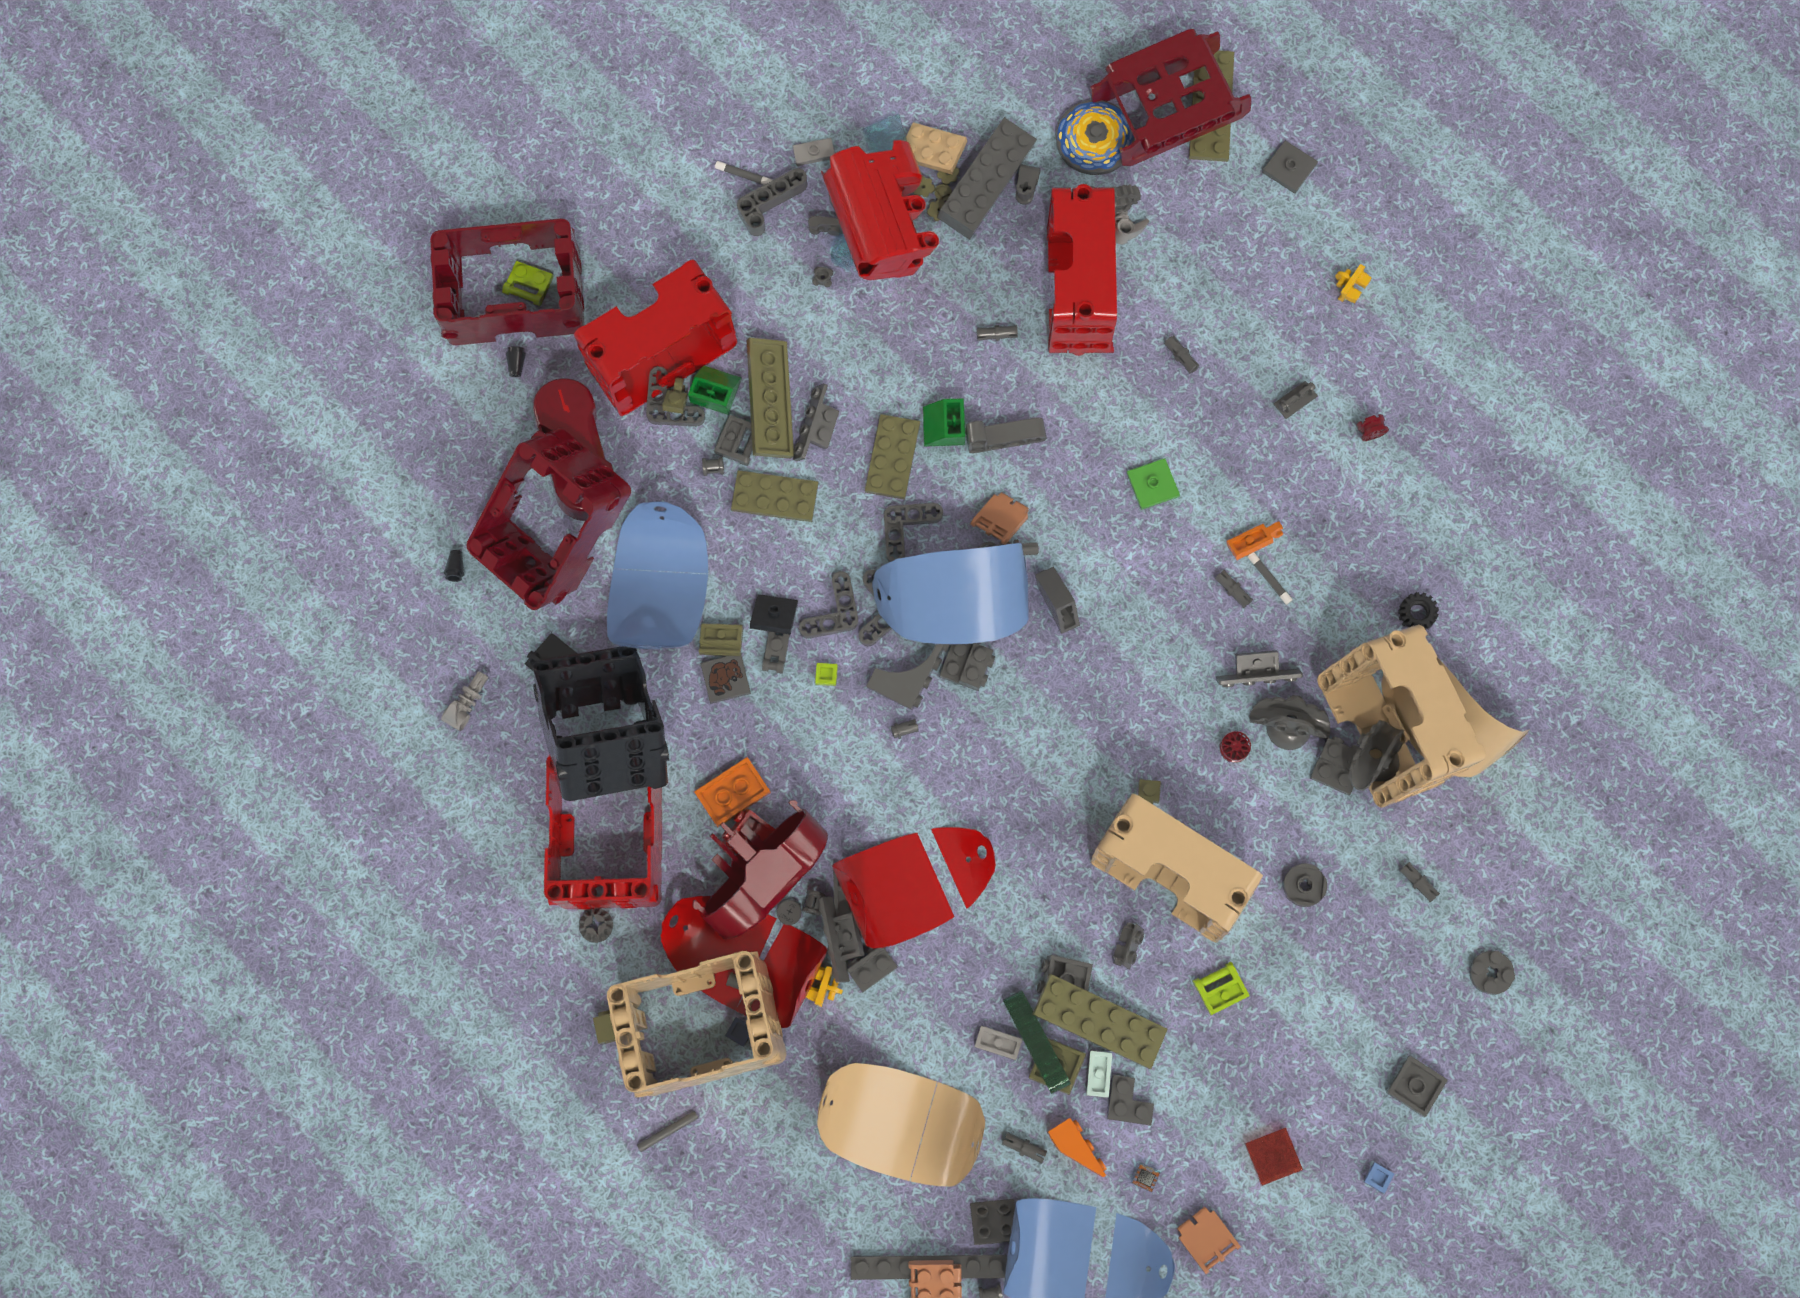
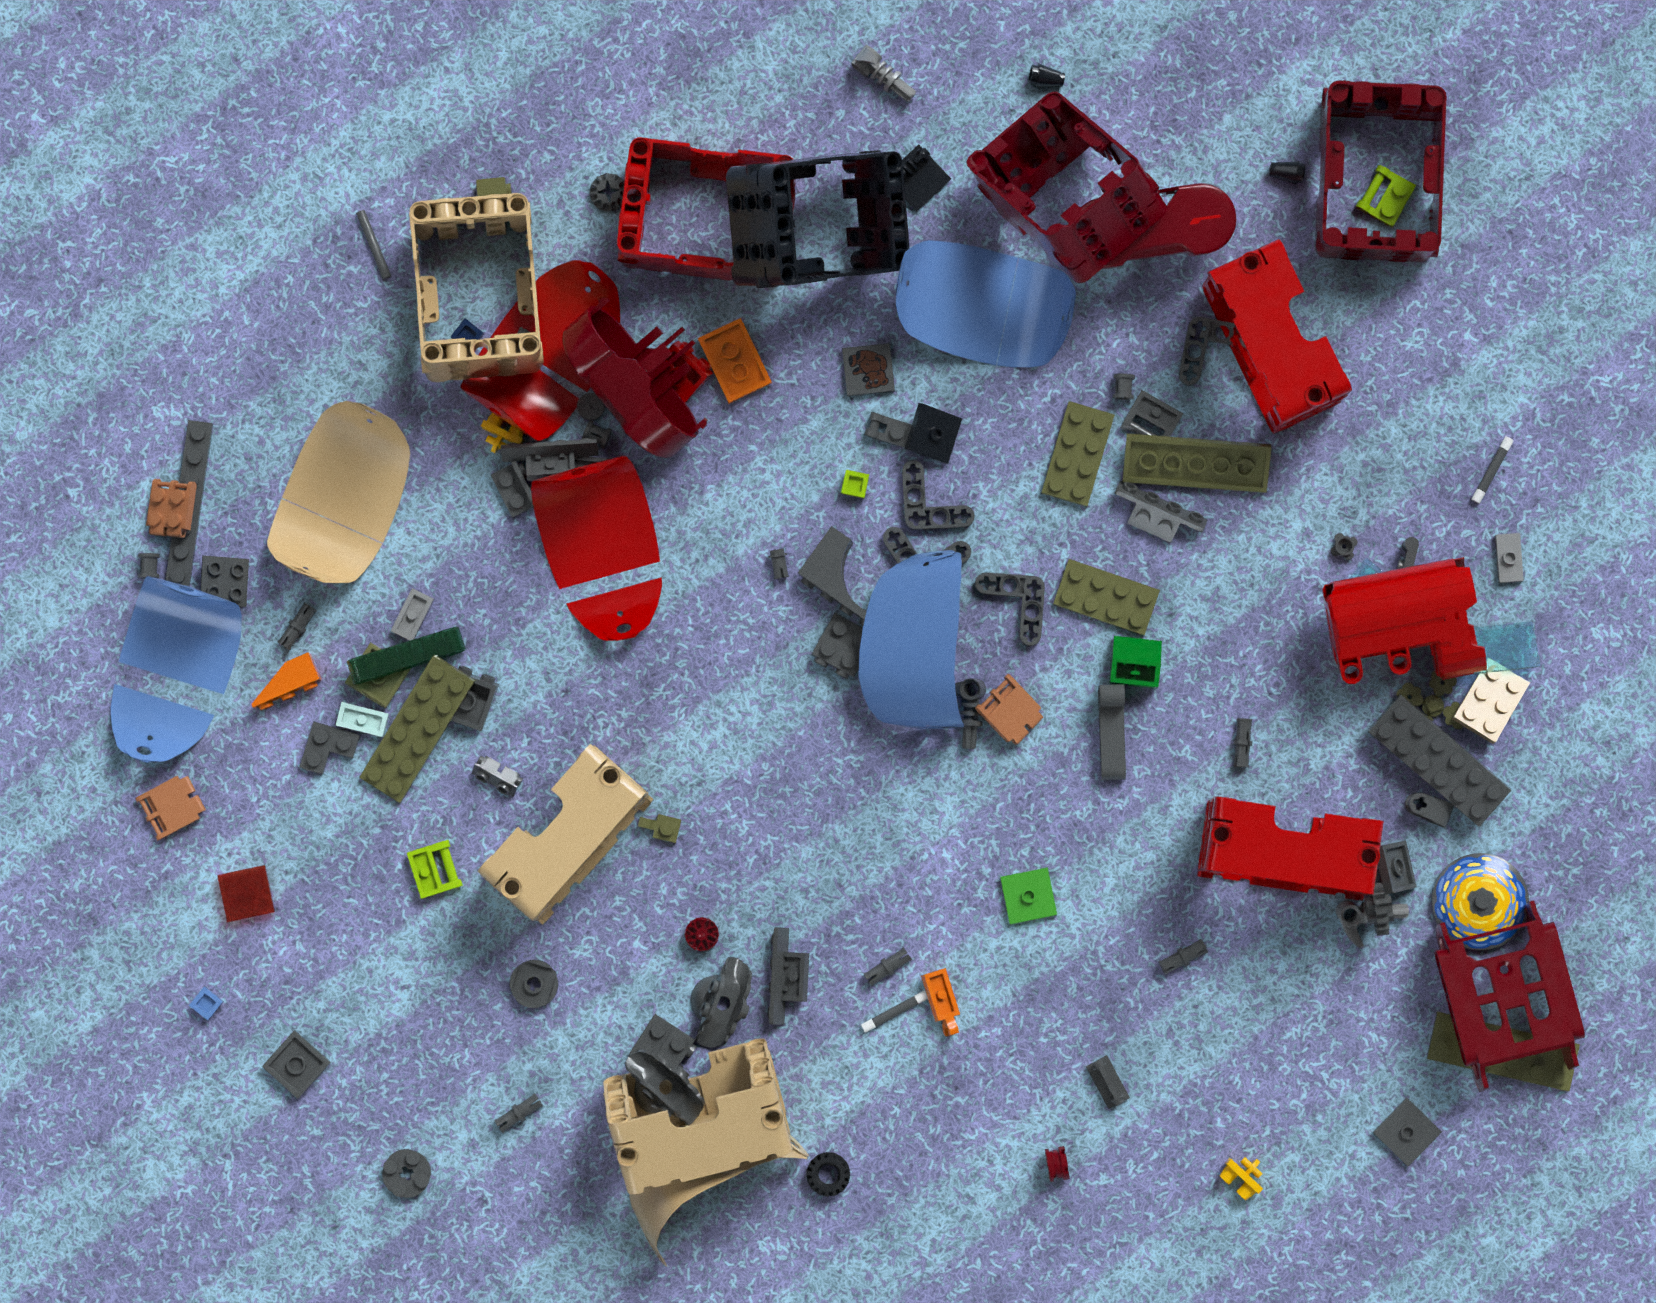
camera: 100 degrees right, 10 degrees up
(676, 399) = (1211, 353): olive plate -> none
(714, 389) = (1218, 400): green slope -> none
(721, 639) = (913, 369): olive plate -> none
(774, 199) = (1451, 501): dark grey beam -> none
(1058, 599) = (903, 760): dark grey slope -> none
(1145, 1177) = (246, 752): tile -> none

